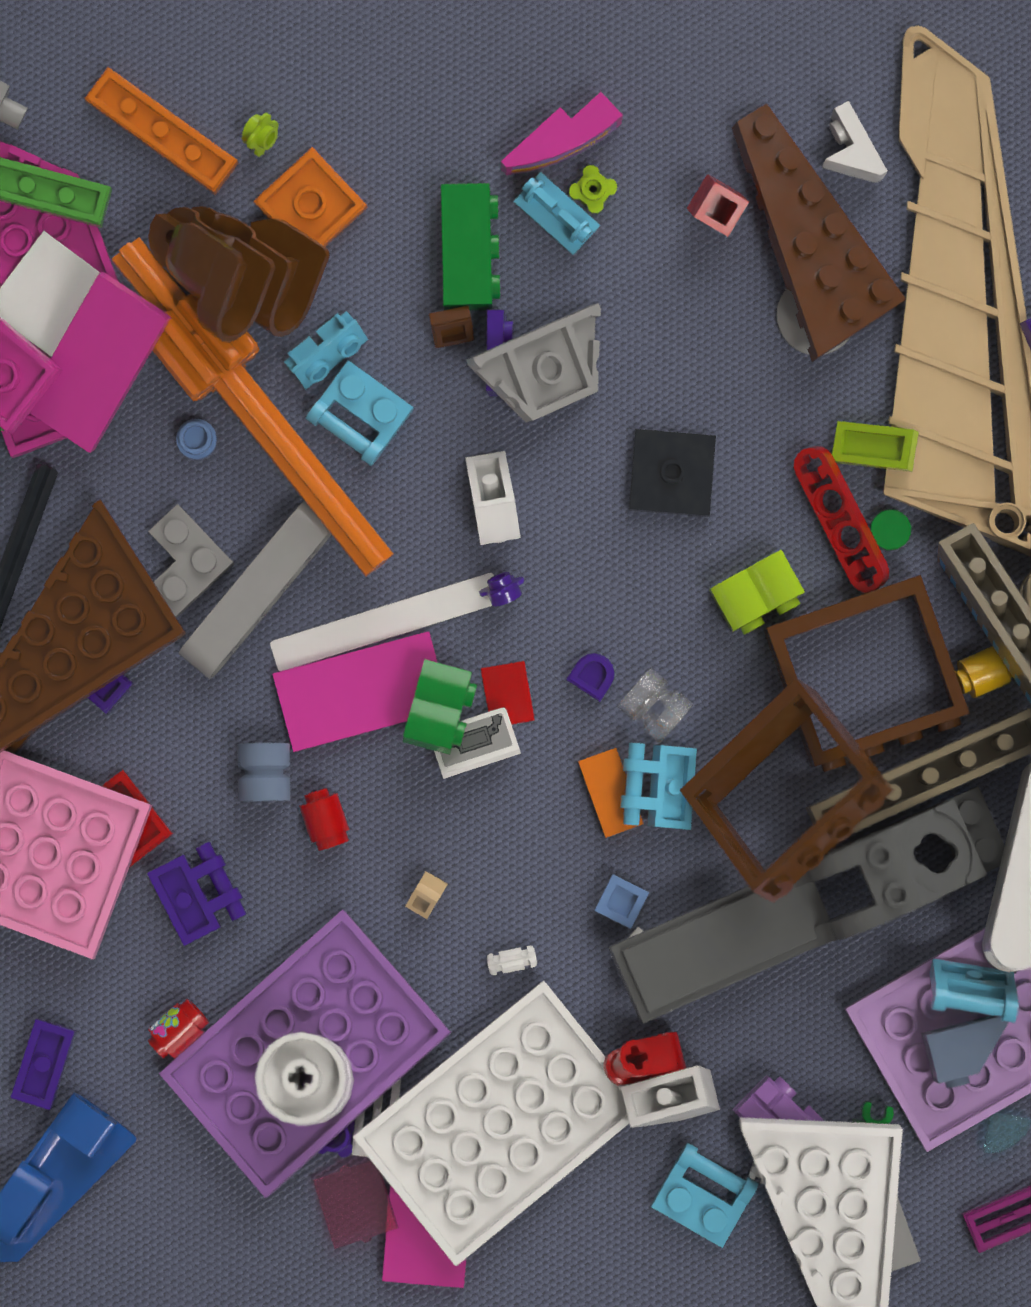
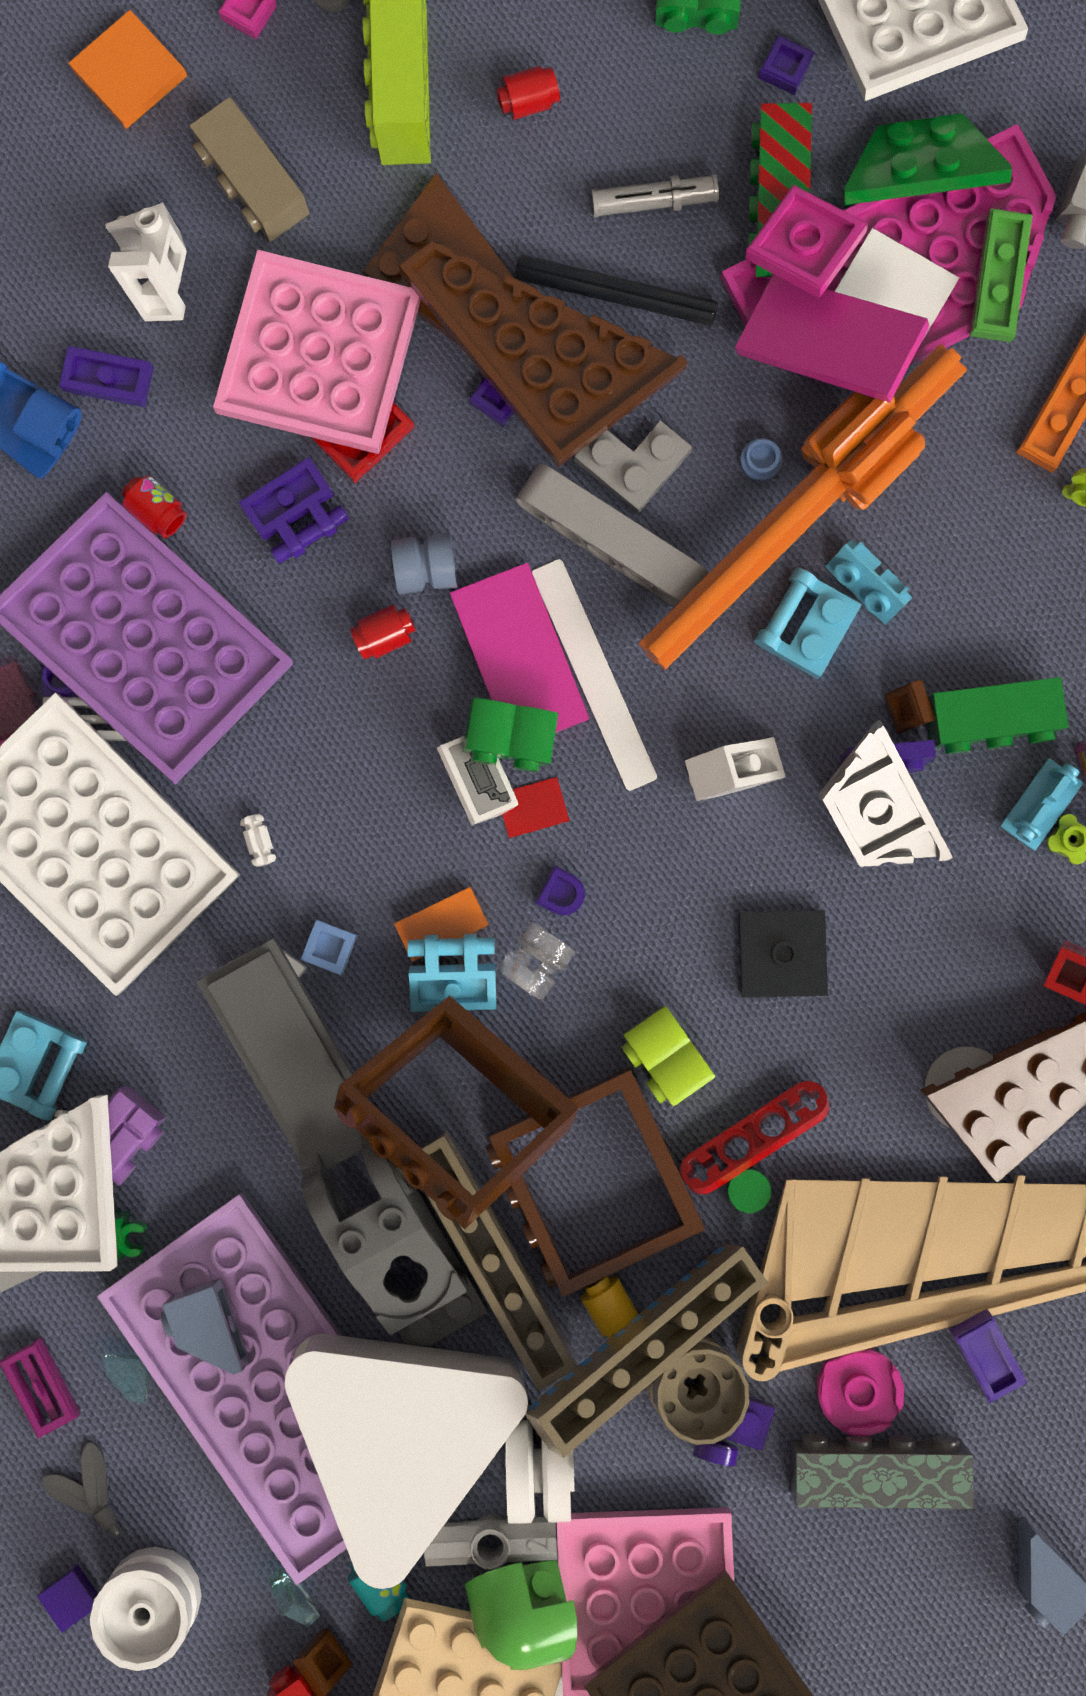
camera: 90 degrees right, 0 degrees up
(240, 270) = (941, 475): reddish brown piece -> none
(280, 1075) = (127, 627): white wheel -> none
(312, 199) = (1019, 549): orange tile -> none
(426, 895) = (316, 745): tan piece -> none
(502, 589) = (641, 789): dark purple plate -> none
(647, 1059) = (165, 994): red piece -> none
(670, 1097) = (127, 1019): white slope -> none
(875, 446) = (836, 1166): lime tile -> none
(973, 989) = (266, 1332): medium azure plate -> none

